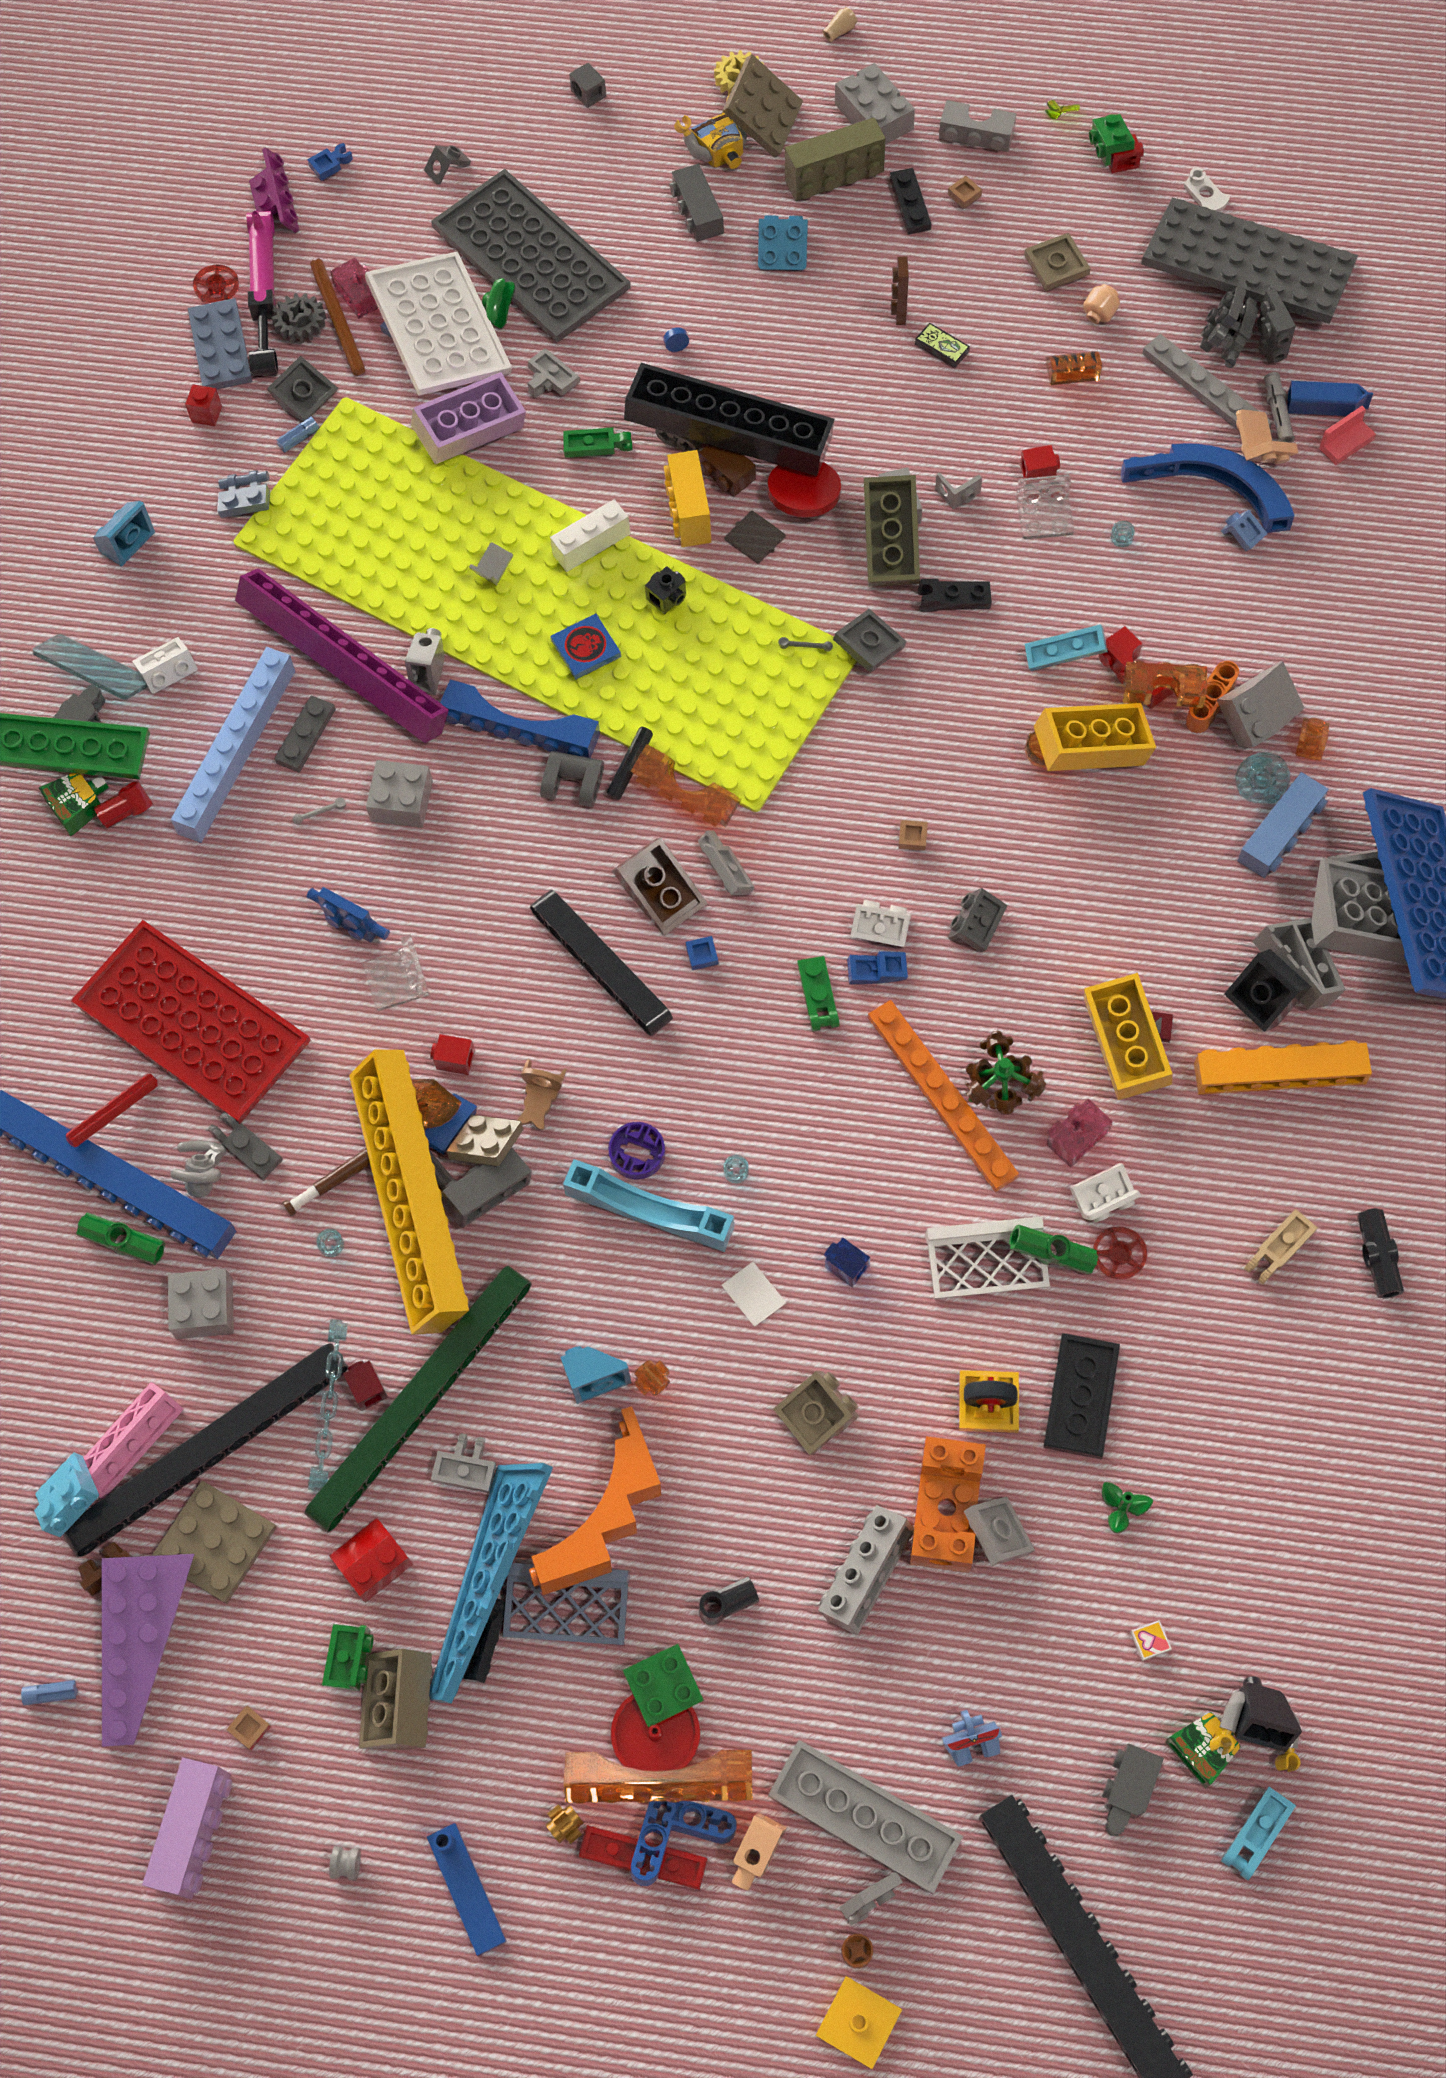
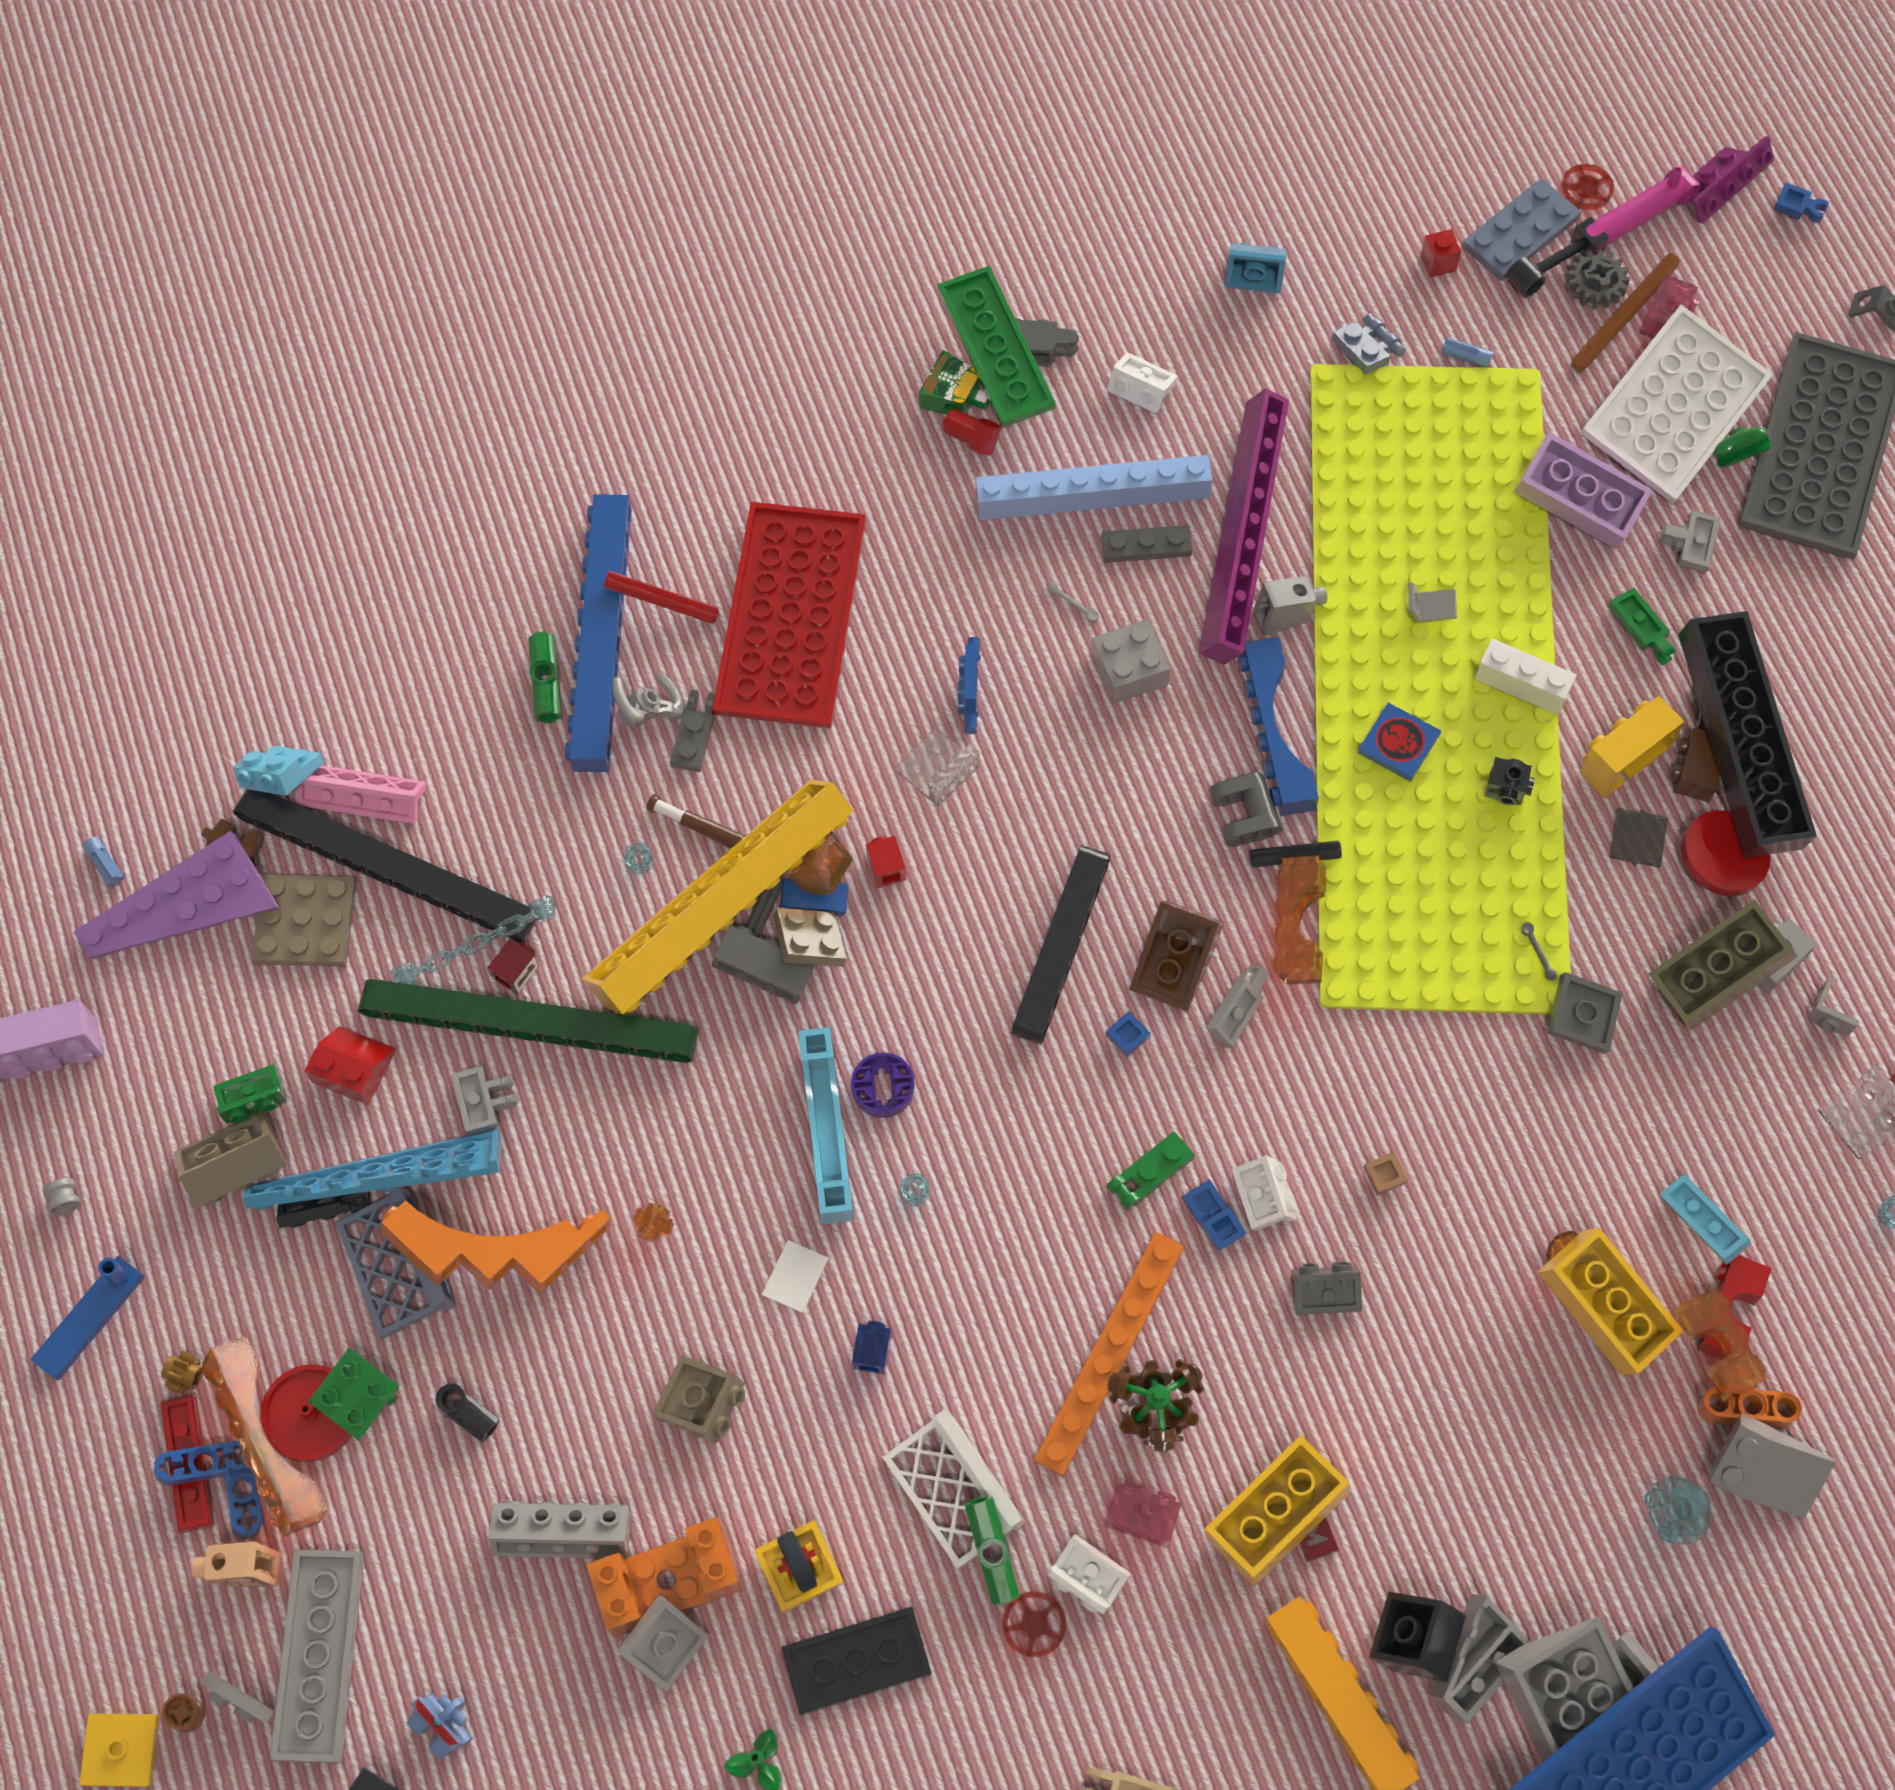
camera: 60 degrees right, 0 degrees up
(91, 666) = (1097, 320): clear light blue piece -> none
(200, 1304) = (517, 780): light grey brick -> none
(248, 1727) = (147, 1045): medium nougat plate -> none
(301, 389) = (1518, 327): dark grey slope -> none
(541, 1091) = (894, 963): medium nougat hair -> none
(593, 1372) = (622, 1160): dark azure slope -> none
(676, 339) = (1819, 635): blue tile -> none
(954, 595) = (1699, 1072): black plate -> none
(1283, 824) = (1638, 1562): medium blue brick -> none
(1312, 738) = (1769, 1544): clear orange bracket -> none

